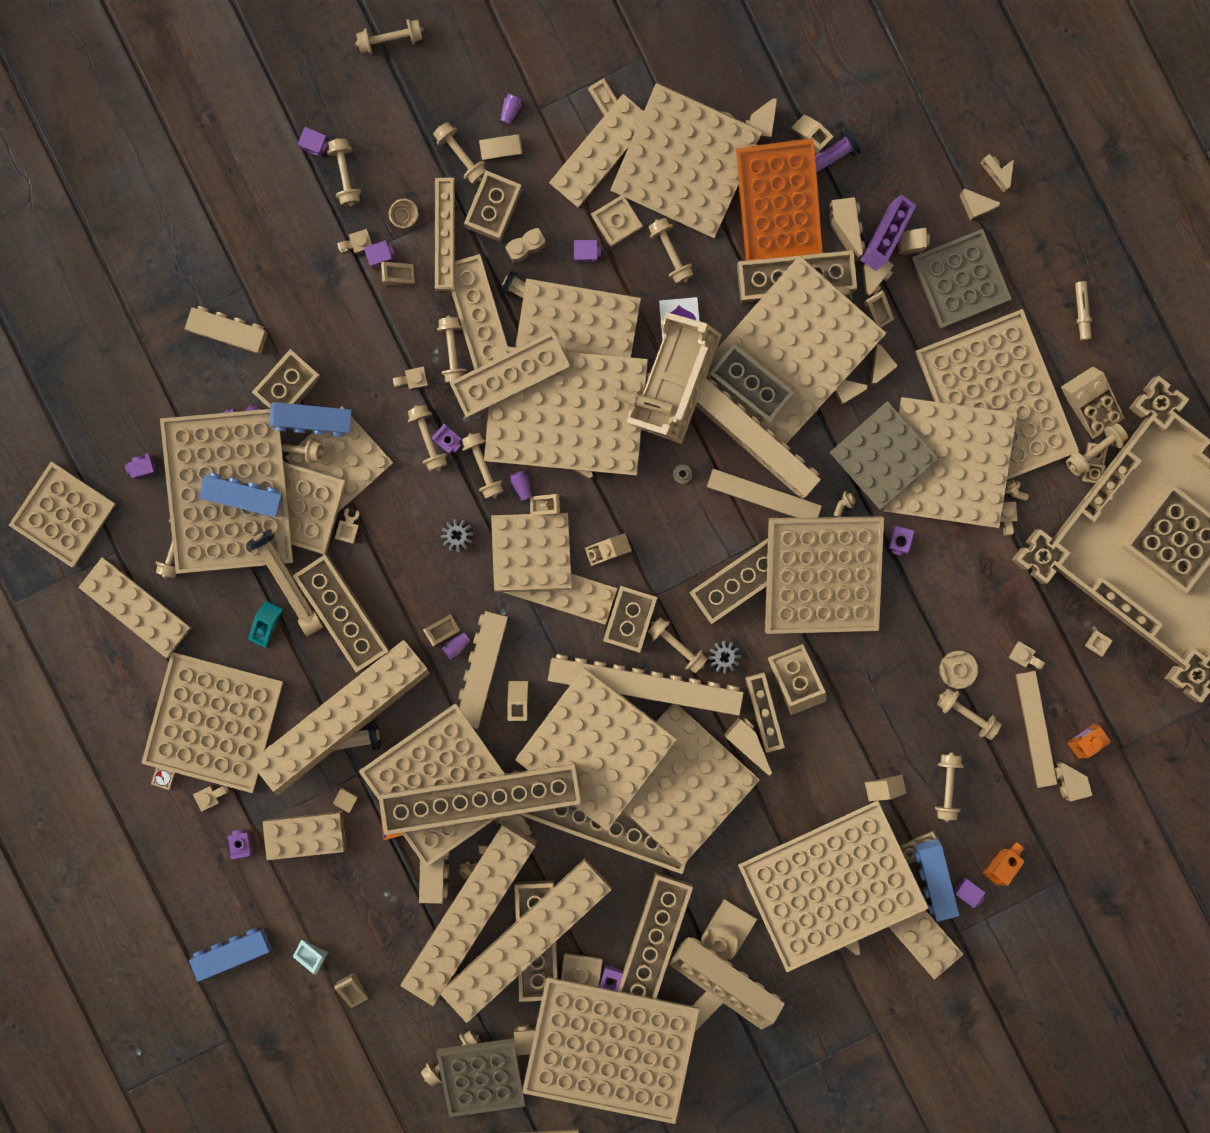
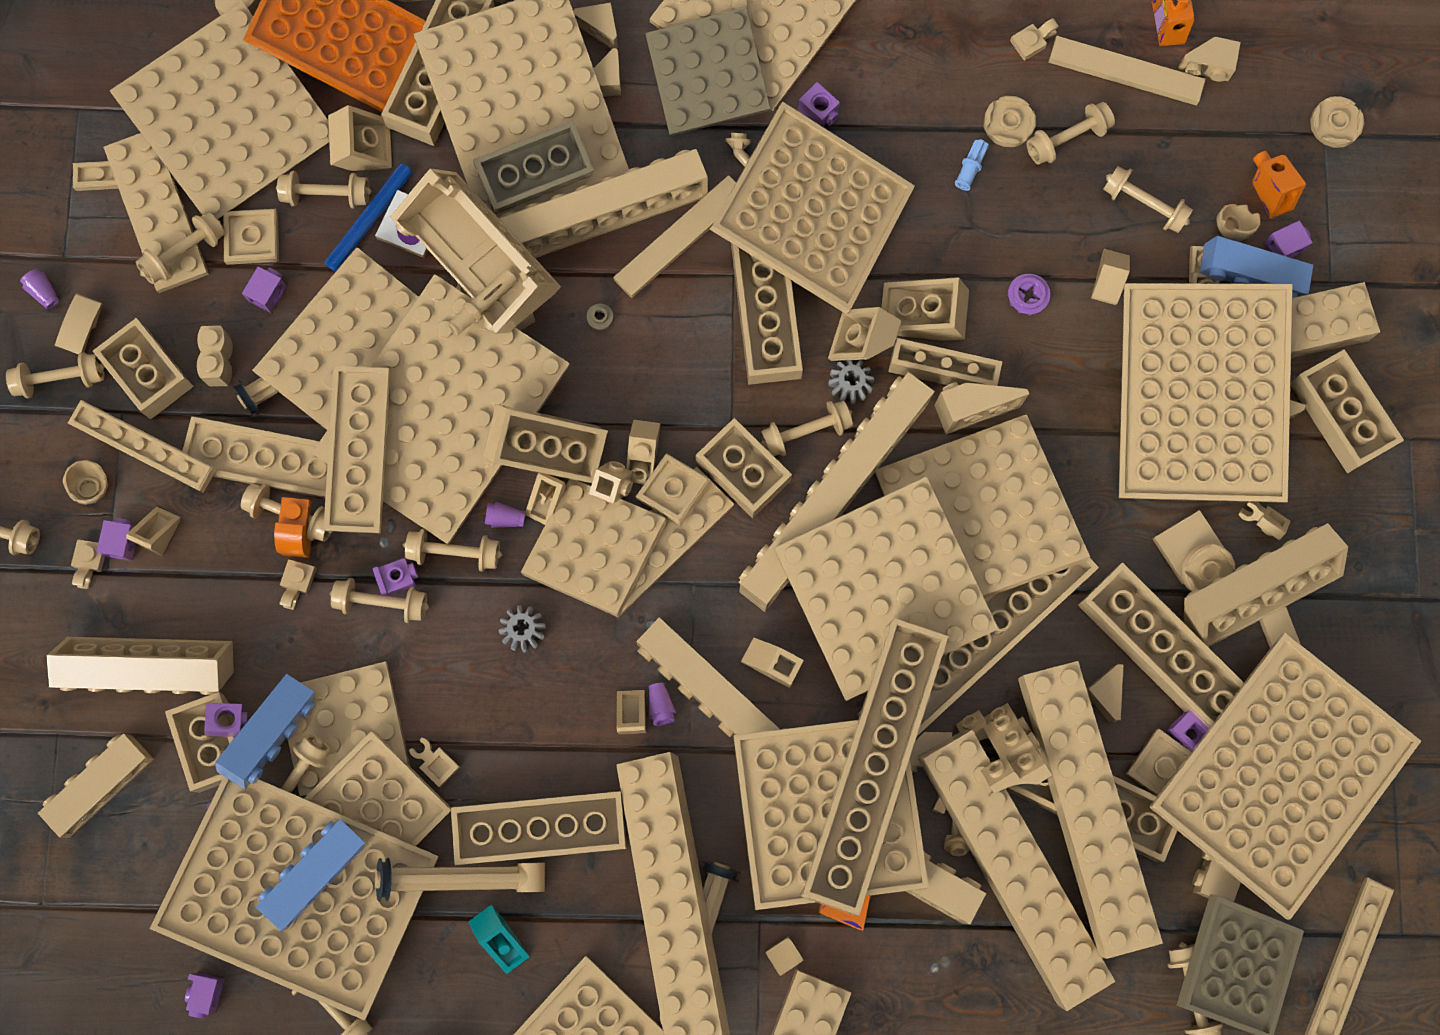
camera: 65 degrees left, 10 degrees down
(303, 381) = (215, 710): none -> medium lavender brick
(310, 317) = (140, 665): none -> tan brick
(443, 359) = (293, 527): none -> orange brick
(541, 874) = (1016, 748): none -> tan bracket
(576, 488) = (544, 443): none -> tan brick
(576, 541) = (611, 482): none -> tan brick
(593, 582) = (673, 489): none -> tan tile
(605, 192) = (206, 228): none -> tan piece
(608, 917) = (1107, 693): none -> tan slope
(671, 289) = (368, 217): none -> blue axle
(716, 254) = (359, 140): none -> tan slope
(754, 651) = (864, 334): none -> tan slope
(773, 966) = (1268, 519): none -> tan plate
(850, 747) = (1040, 292): none -> medium lavender gear
(870, 982) = (1346, 411): none -> tan brick
(914, 660) = (971, 164): none -> light blue axle
(965, 852) = (1237, 222): none -> tan hair
(1074, 885) = (1337, 122): none -> tan tile

